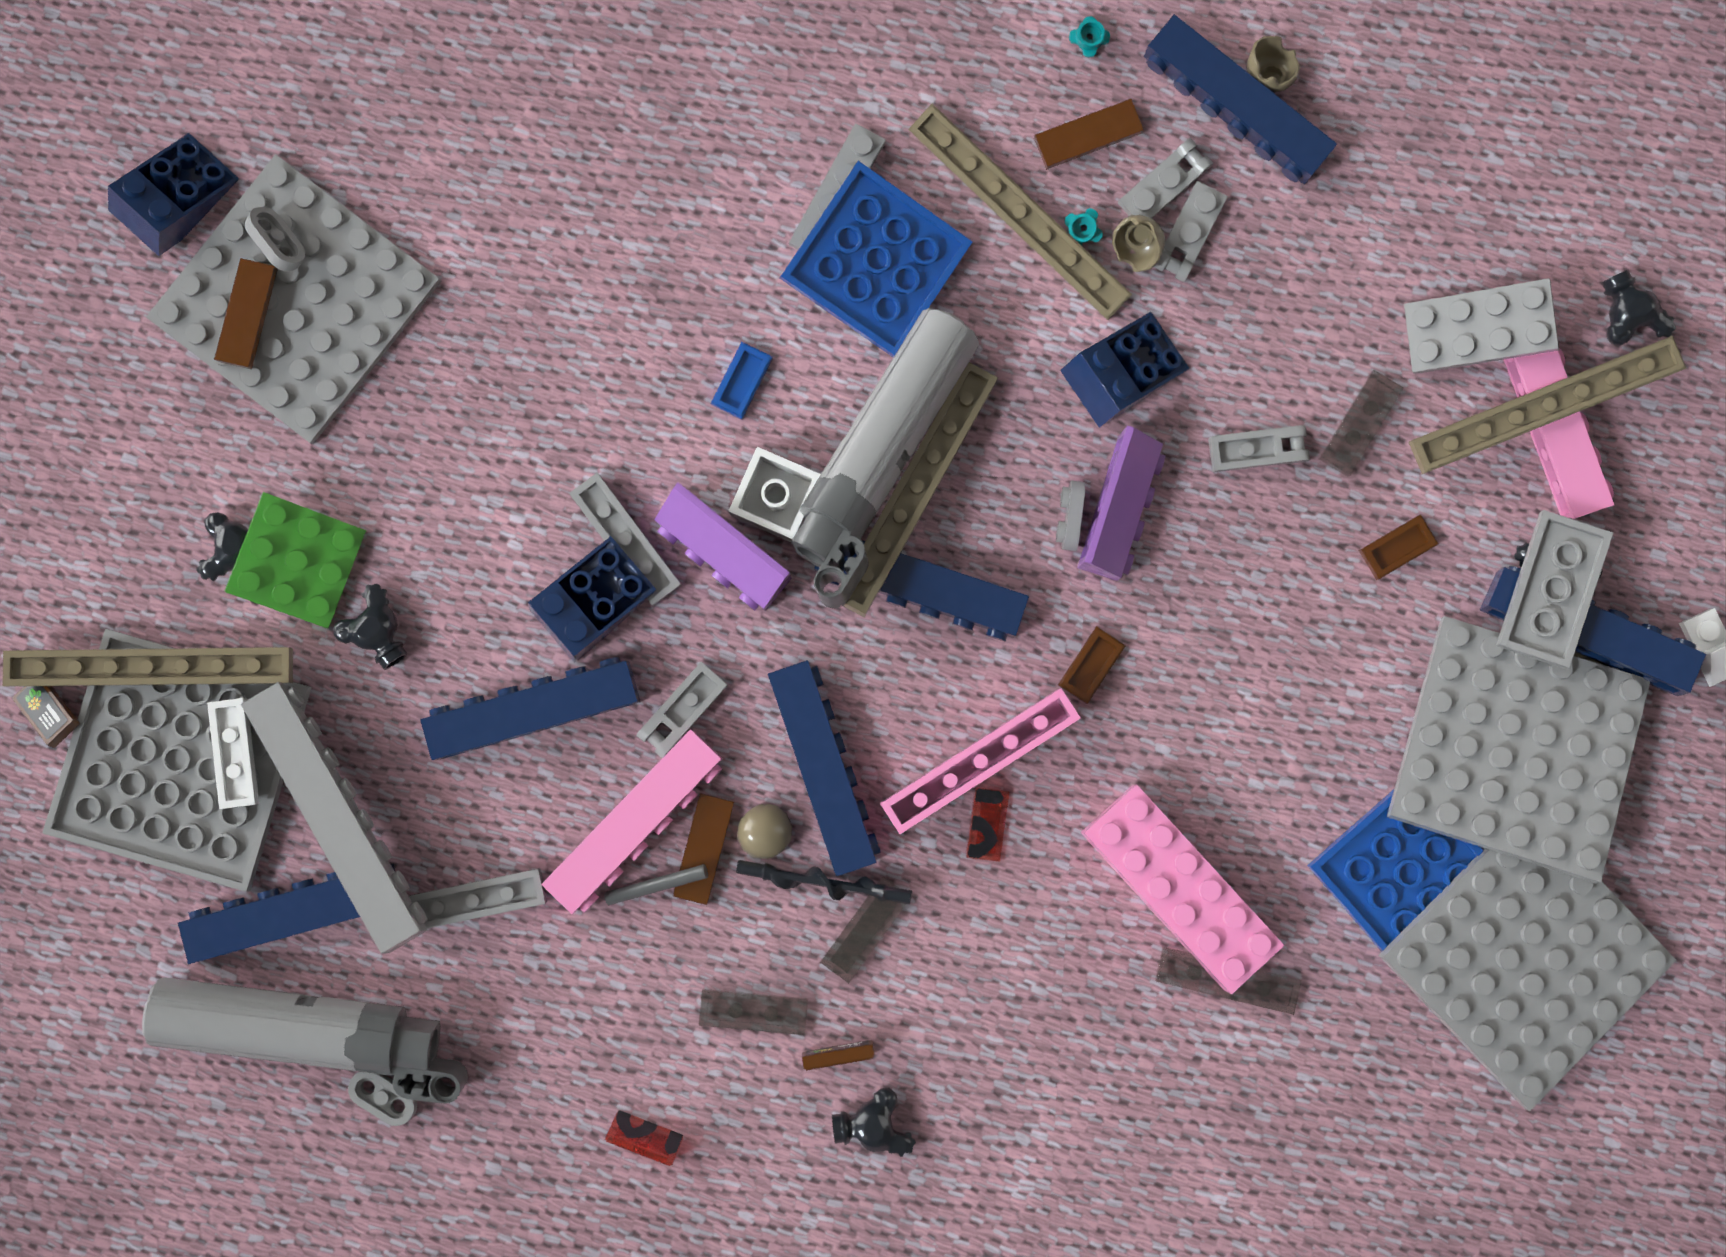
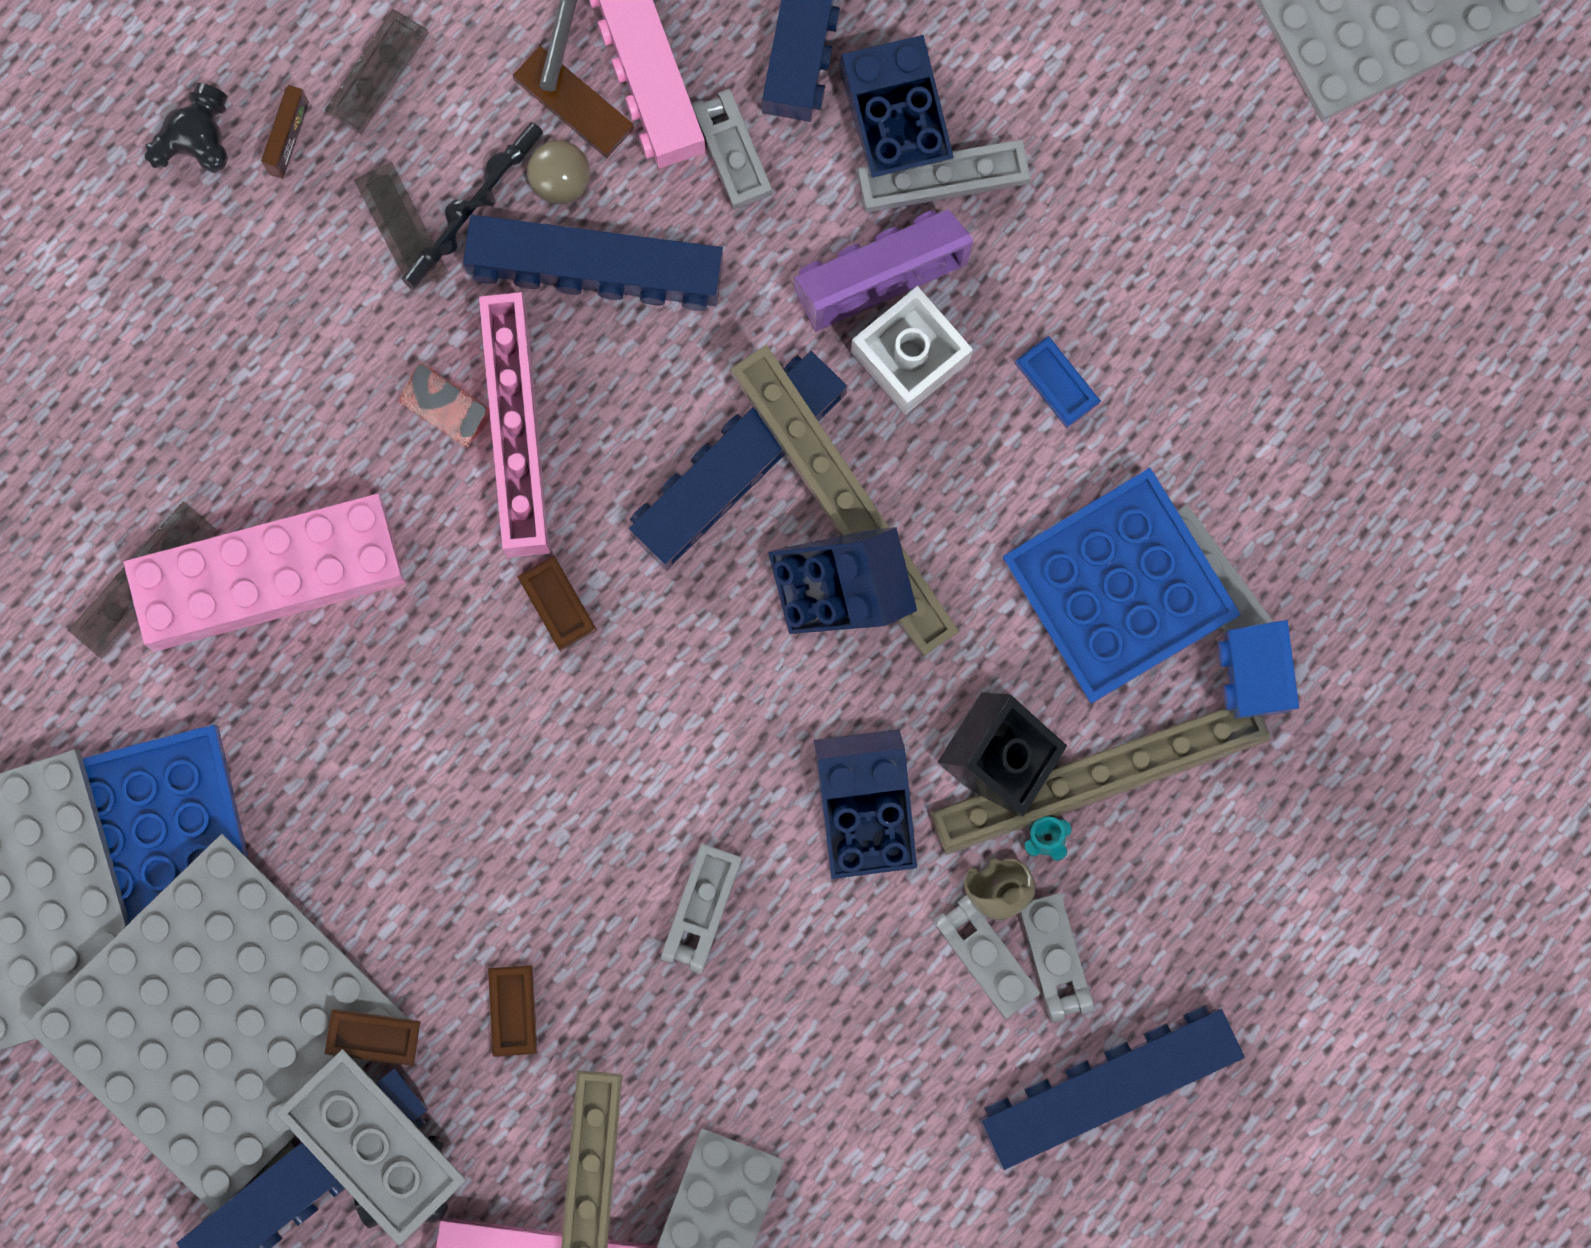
camera: 115 degrees right, 5 degrees down
(878, 449) = (904, 475): light grey piece -> none
(894, 126) = (1259, 670): none -> blue slope
(978, 456) = (843, 582): none -> dark blue slope
(1041, 286) = (1002, 752): none -> black slope
(1073, 500) = (716, 650): light grey plate -> none
(1088, 134) = (1153, 898): reddish brown tile -> none
(1096, 29) = (1271, 944): teal plate -> none
(1121, 504) = (714, 716): medium lavender slope -> none
(1273, 64) = (1133, 1147): dark tan hair -> none
(1361, 423) = (673, 1041): clear smoke tile -> none
(1473, 632) = (373, 1037): none -> reddish brown tile

